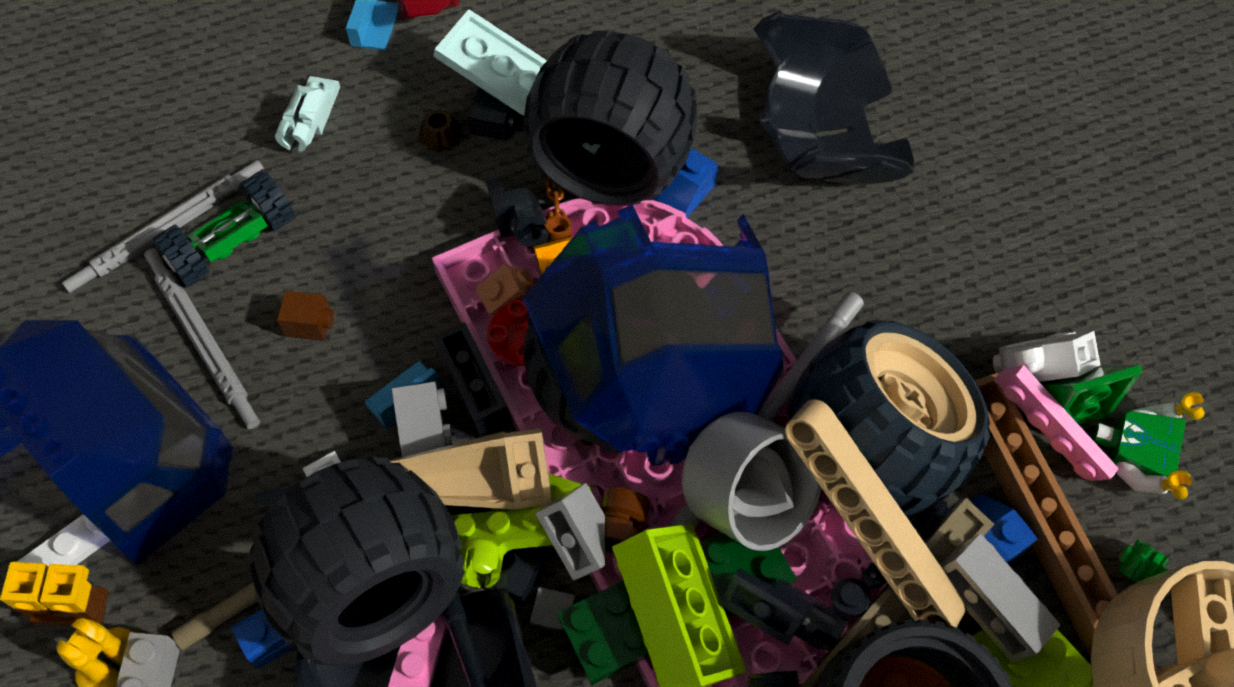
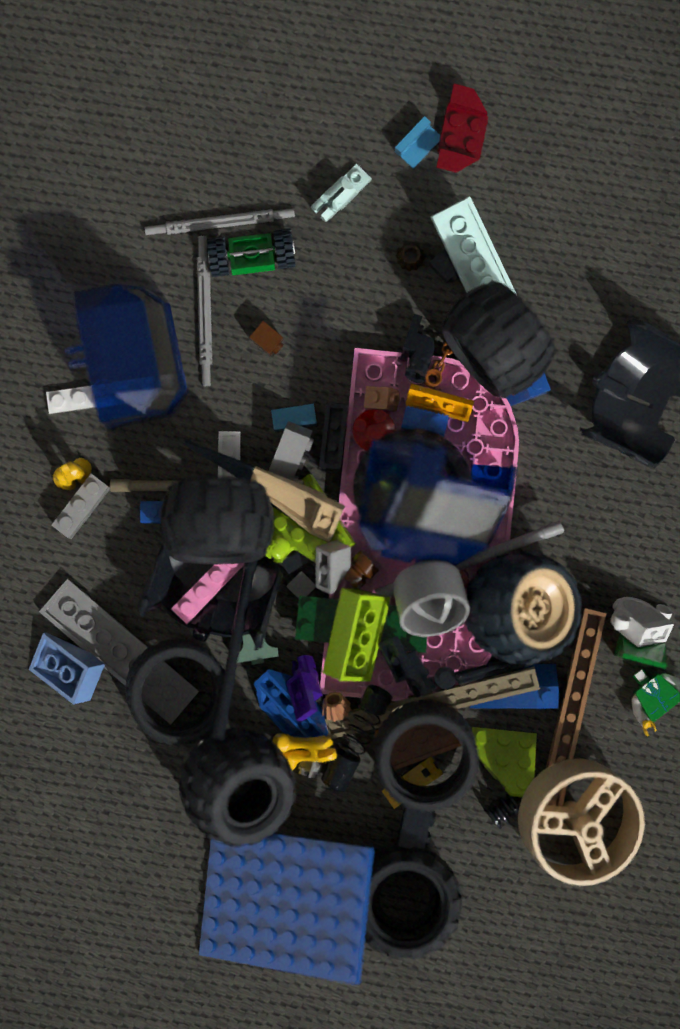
camera: 30 degrees right, 25 degrees up
(53, 593) = (64, 433): yellow hips -> none
(873, 515) = (474, 657): tan beam -> none
(999, 599) = (511, 724): light grey brick -> none
(1055, 424) = (610, 651): bright pink plate -> none
(1141, 561) = (603, 750): green gear -> none

